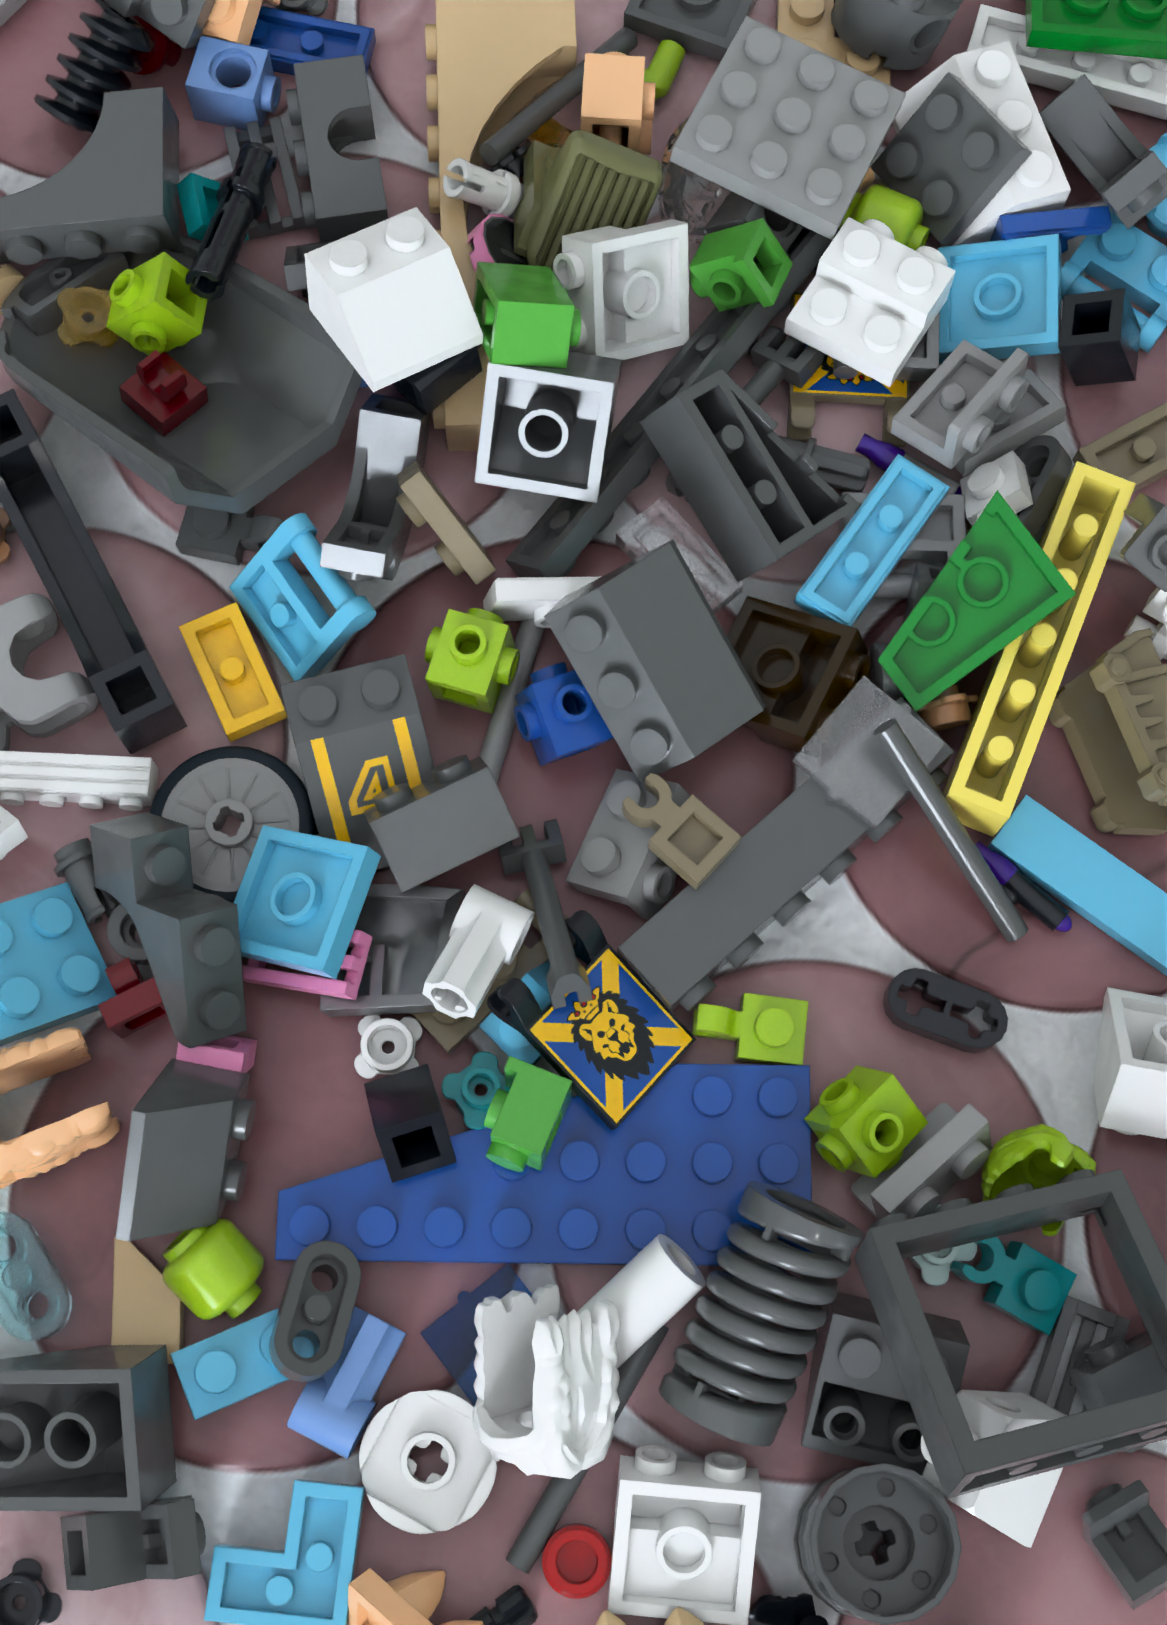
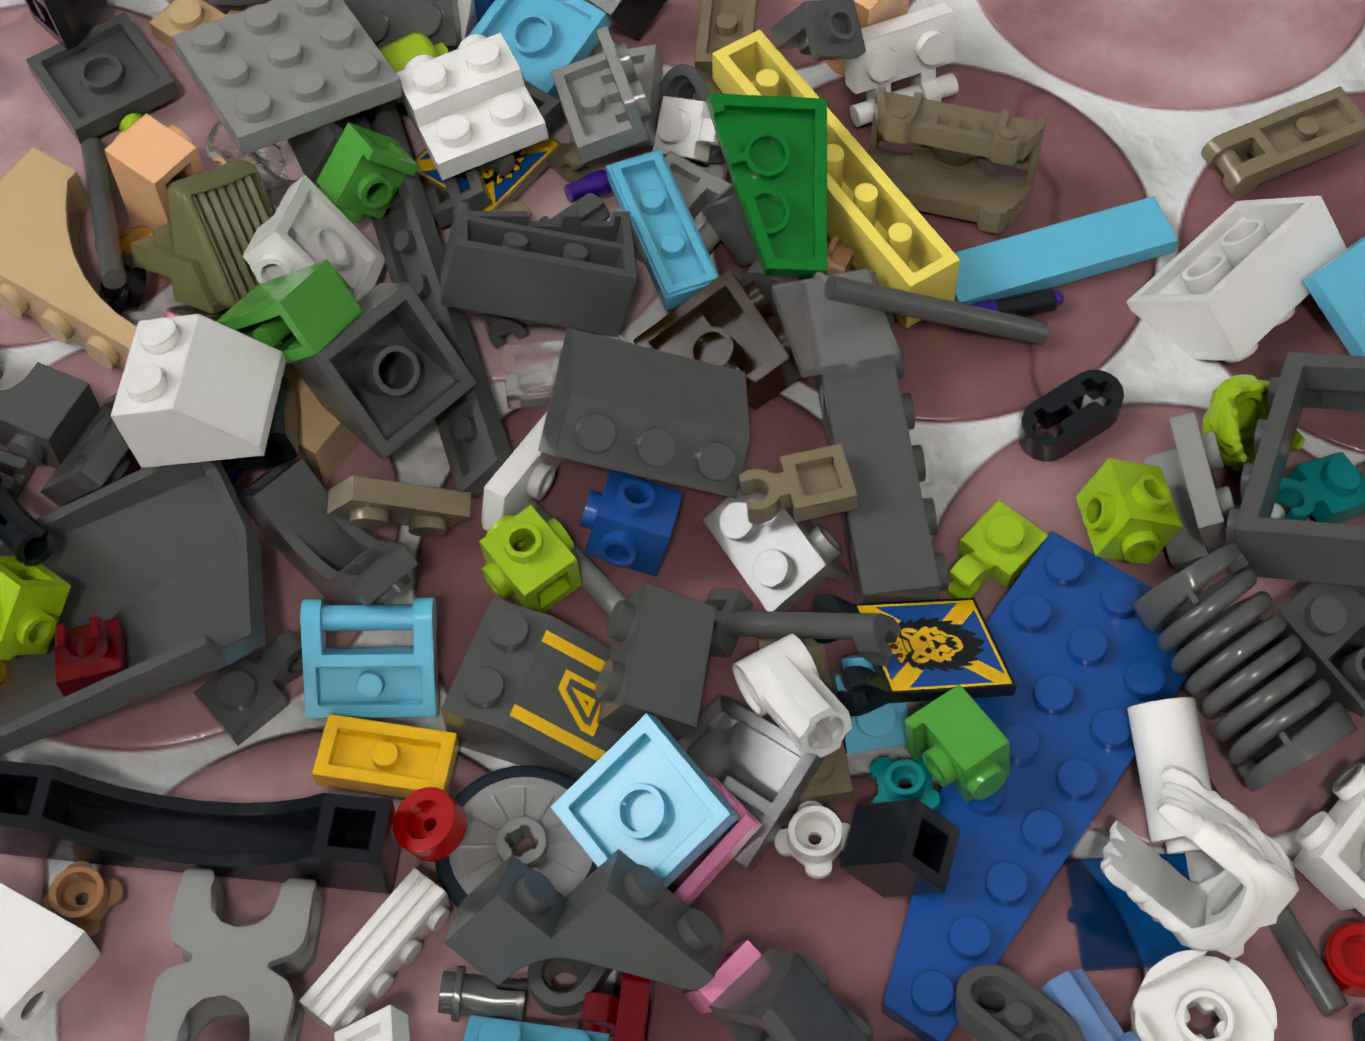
camera: 50 degrees left, 15 degrees down
(184, 745) = (429, 824): none -> red tile
(494, 191) = (141, 300): white pin -> none

